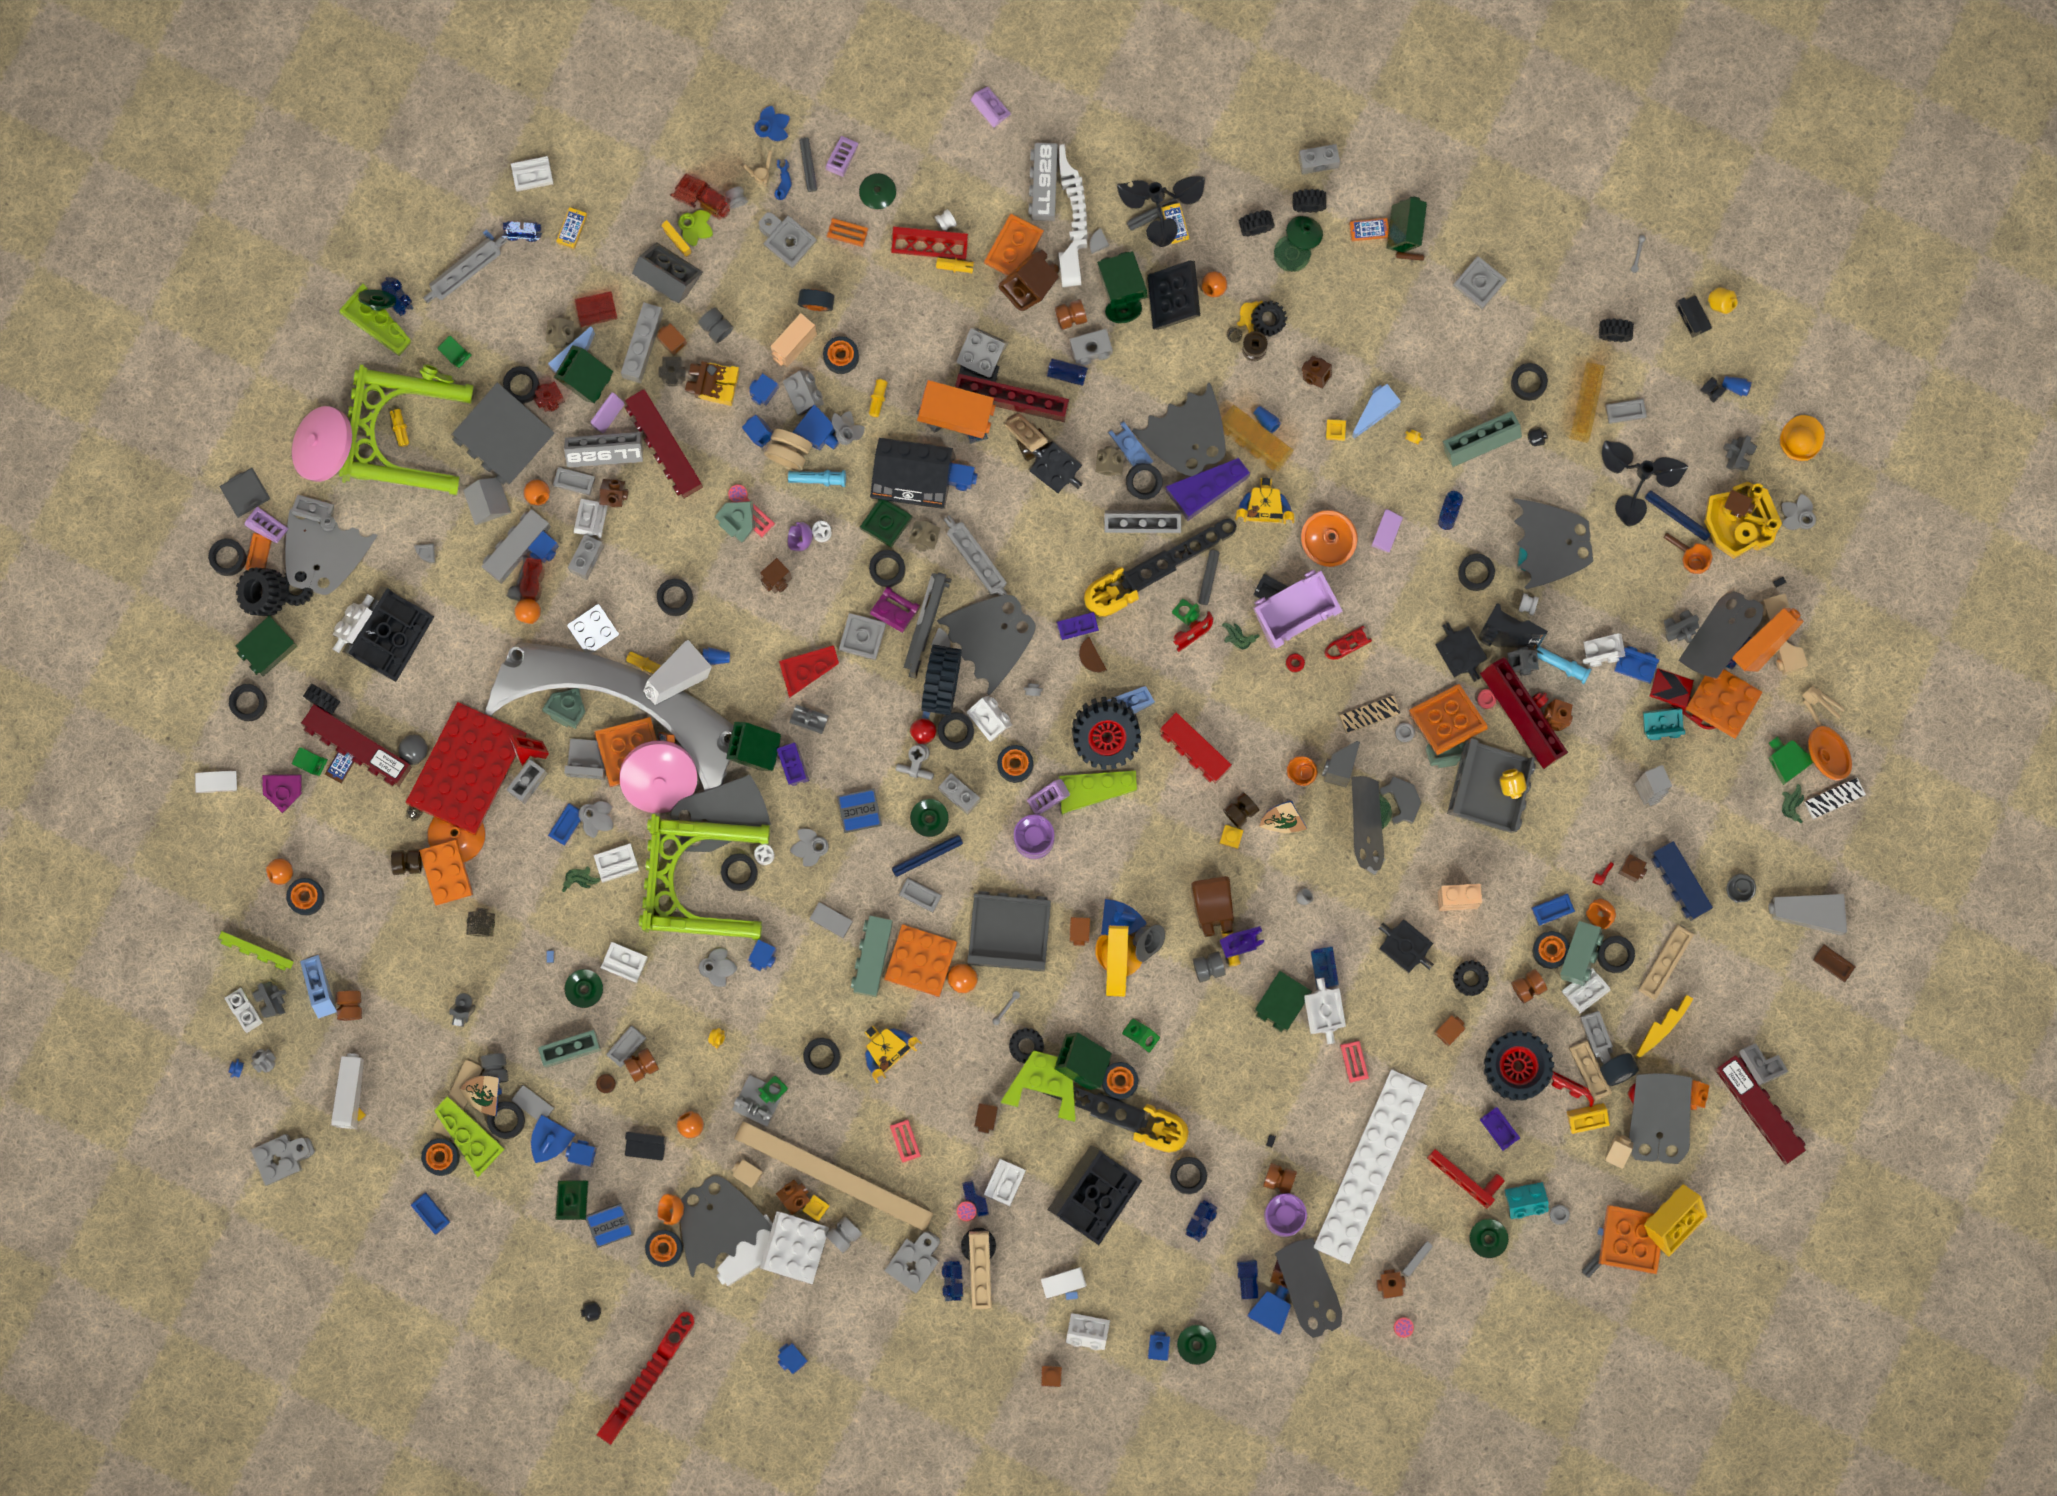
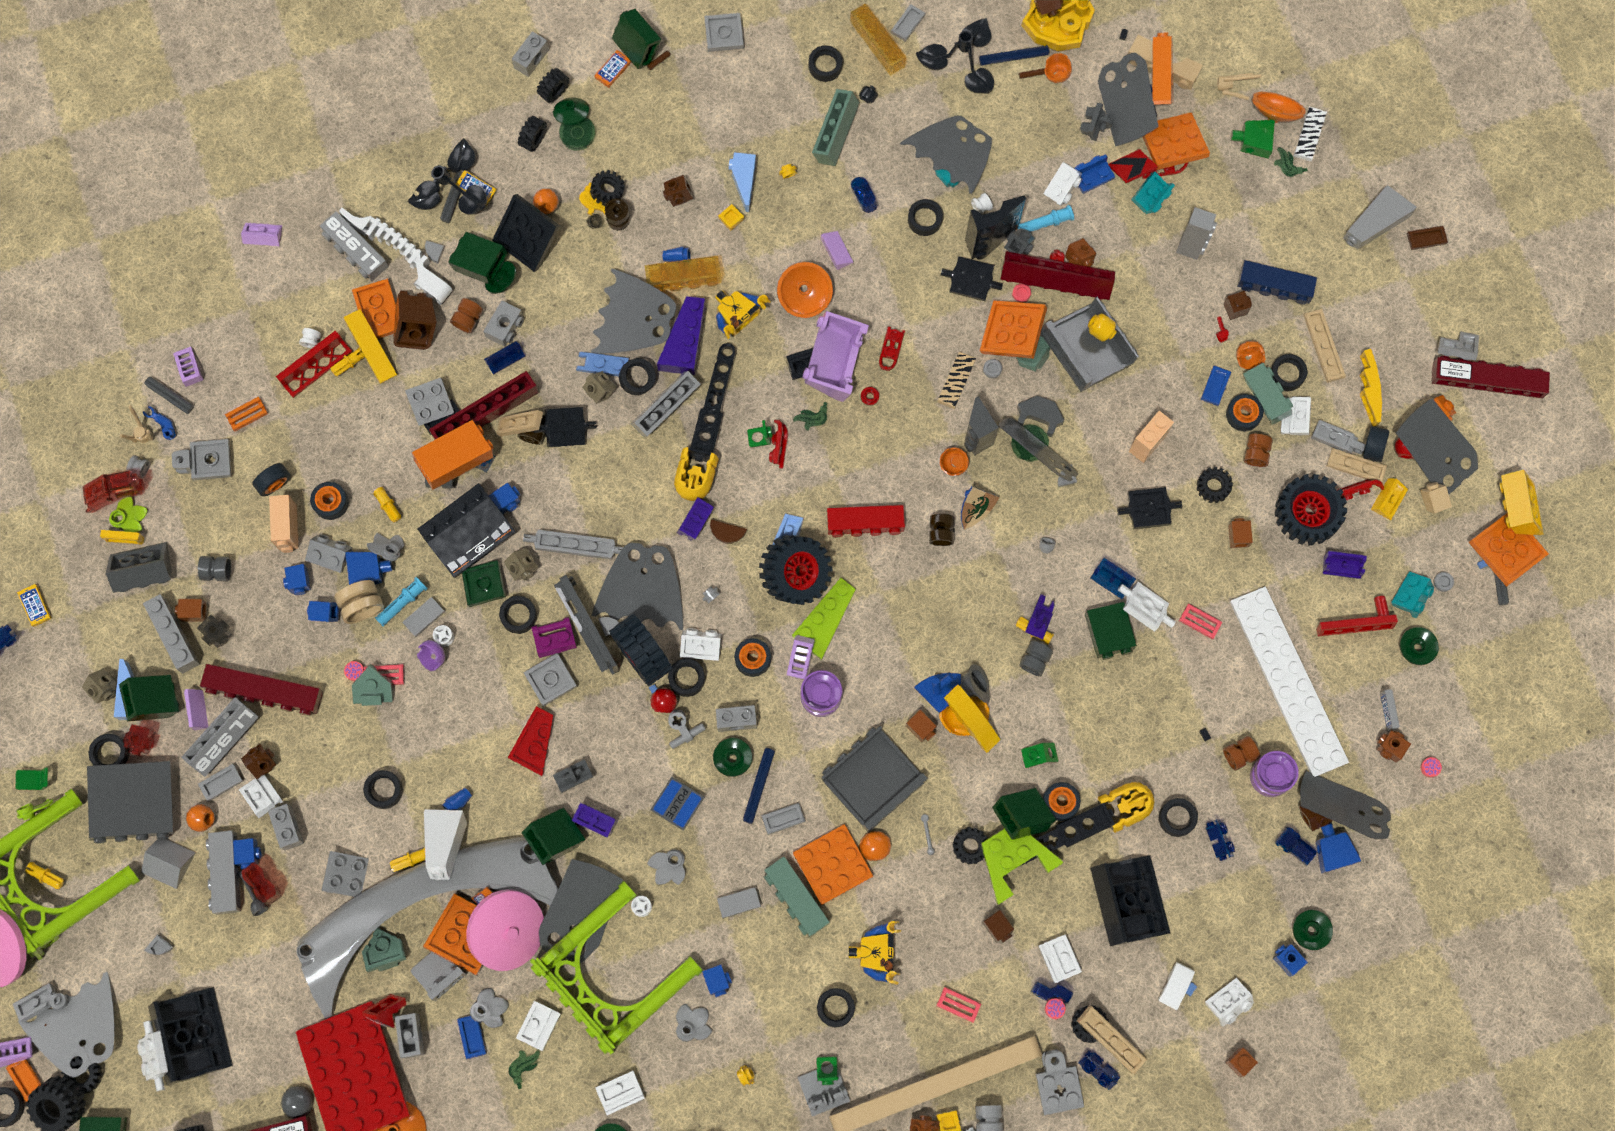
camera: 50 degrees left, 5 degrees down
(527, 611) = (281, 910): orange piece -> none
(596, 309) = (111, 644): clear red plate -> none
(714, 382) = (254, 609): hips -> none
(736, 886) = (621, 935): black tyre -> none
(775, 124) = (114, 390): blue plate -> none
(775, 576) = (443, 699): reddish brown brick -> none
(822, 504) = (423, 617): none -> light grey tile
(880, 199) = (242, 373): dark green dish -> none
(980, 269) = (370, 346): none -> yellow tile
(1209, 577) = (750, 398): dark grey axle -> none
(1213, 904) = (994, 613): reddish brown hips -> none
(1231, 837) = (953, 555): yellow plate -> none
(1745, 884) = (1321, 244): dark grey hair -> none

